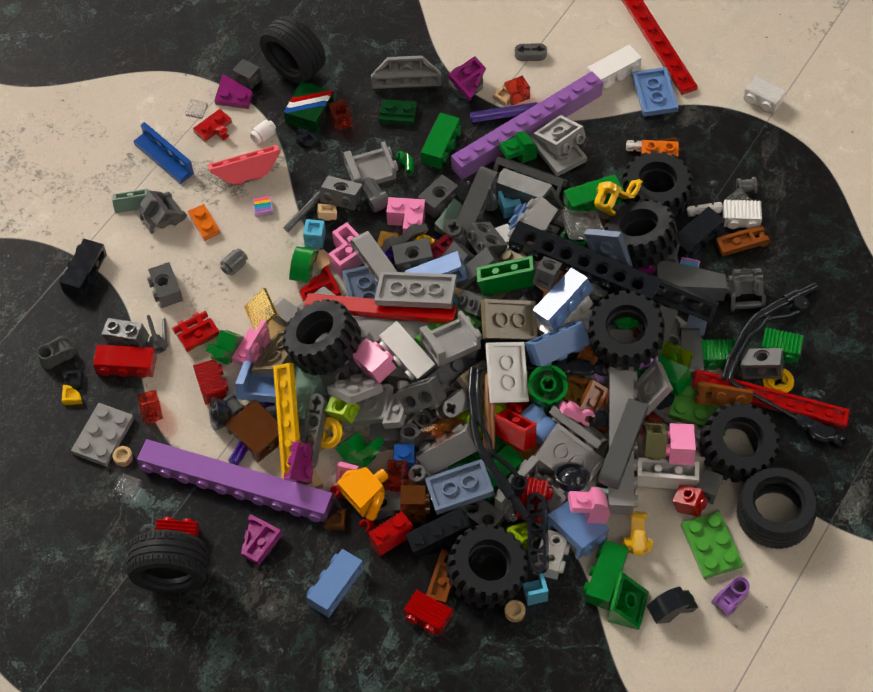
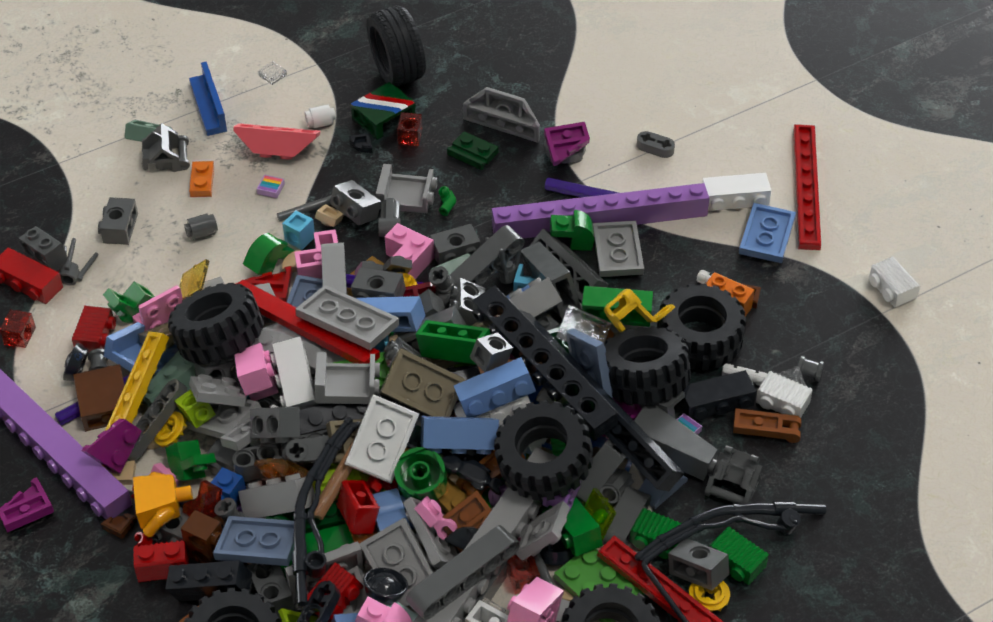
camera: 25 degrees right, 10 degrees down
(82, 268) = (53, 174): black brick -> none
(198, 334) = (115, 275): red plate -> none
(213, 125) = (277, 94): red plate -> none
(233, 94) = (317, 72): magenta wing -> none
(247, 74) = (343, 58): dark grey brick -> none
(334, 582) = (68, 585): medium blue brick -> none
(441, 141) = (496, 192): green brick -> none
(502, 96) = (595, 175): tan tile -> none
(518, 90) = (613, 174): clear red panel -> none
(561, 135) = (625, 233): light grey plate -> none
(654, 441) = (504, 586): olive brick -> none
(722, 394) = (625, 575): dark orange plate -> none

